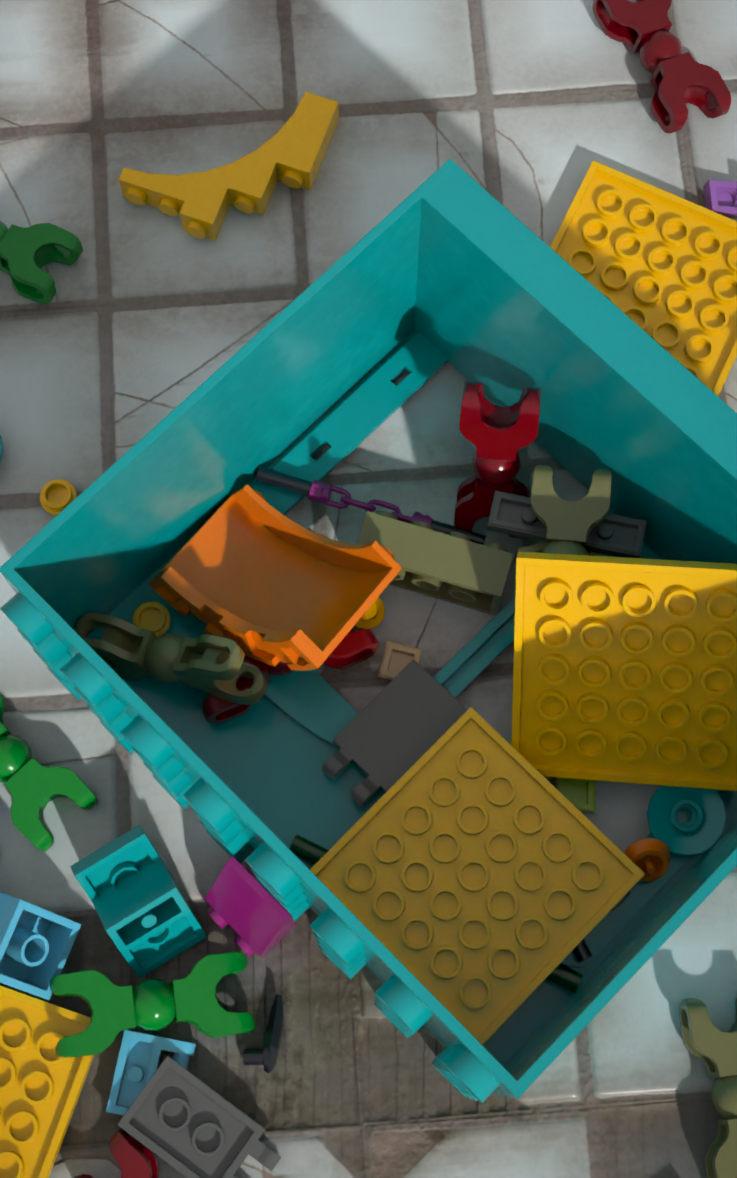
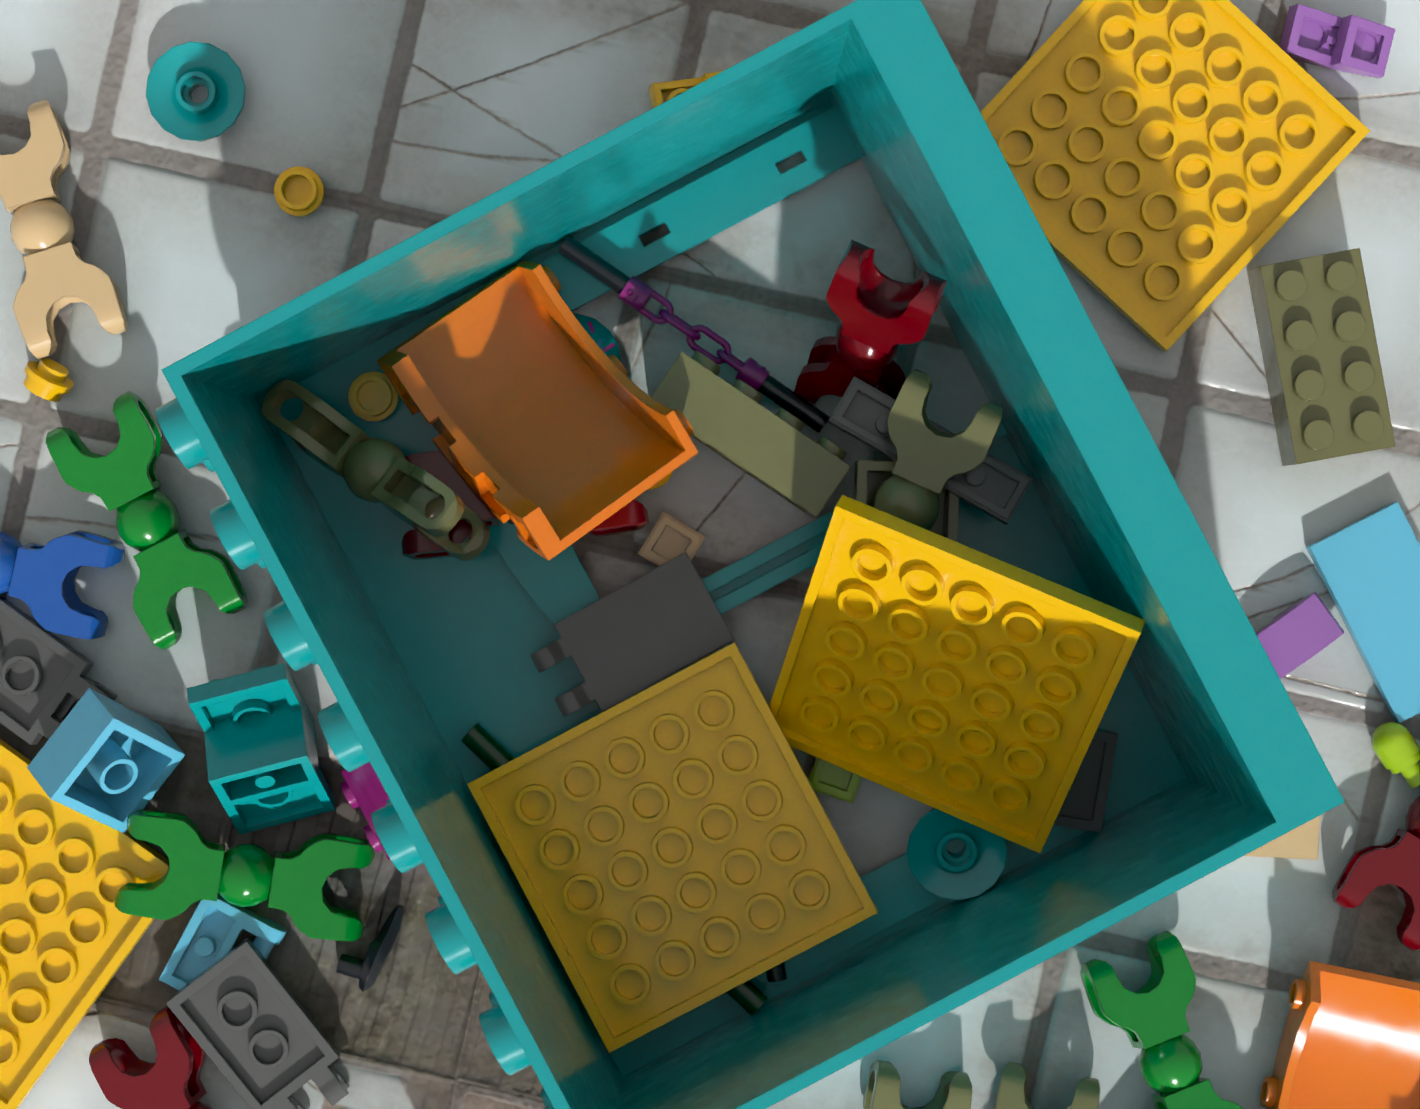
camera: 20 degrees right, 15 degrees up
(650, 856) = (892, 888): orange hat -> none

